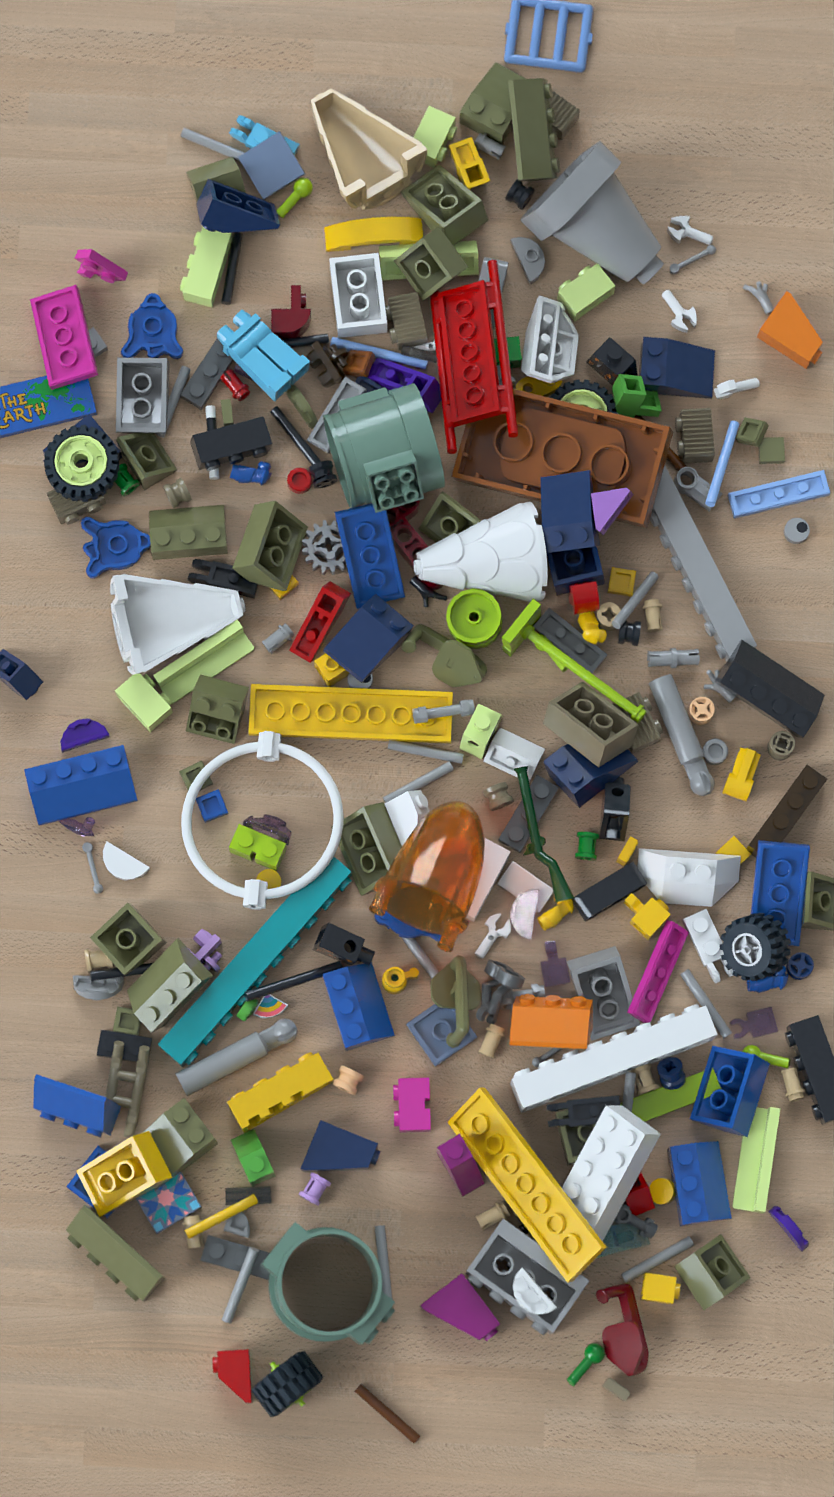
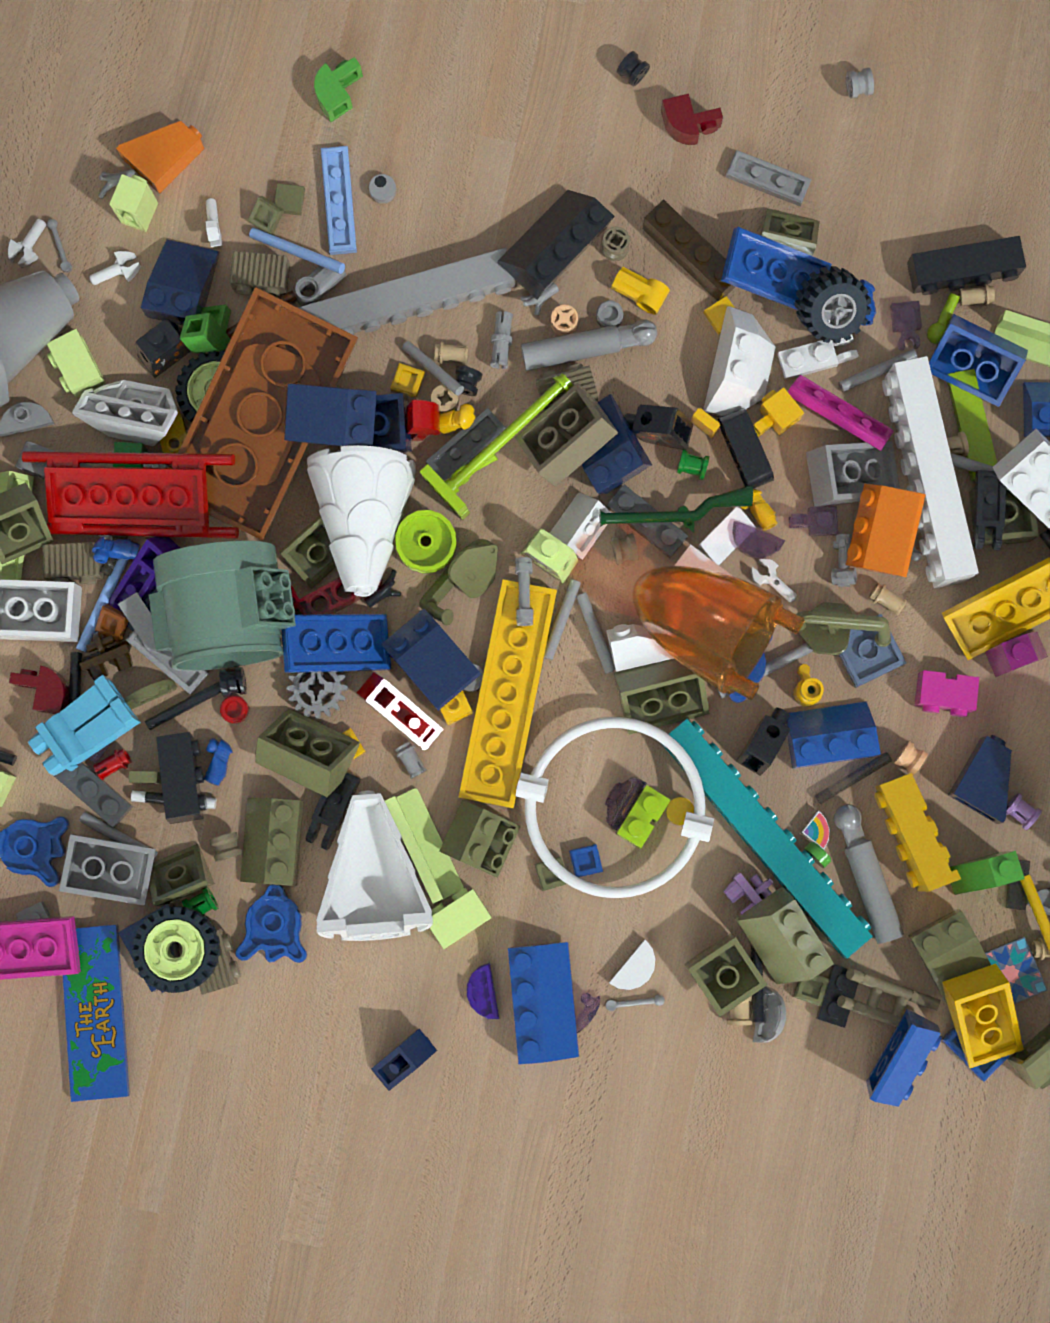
camera: 75 degrees left, 5 degrees up
(291, 981) = (796, 801): black bar -> none
(323, 1034) = (853, 778): none -> clear smoke bar
(366, 383) = (139, 618): none -> light grey sticker
(424, 357) = (114, 549): none -> blue arm
(502, 975) = (828, 569): dark grey piece -> none
(608, 506) = (332, 370): medium lavender slope -> none
(671, 1073) = (956, 413): dark blue wheel -> none
(740, 315) = (134, 202): none -> yellowish green brick
(803, 964) = (857, 261): dark blue wheel -> none

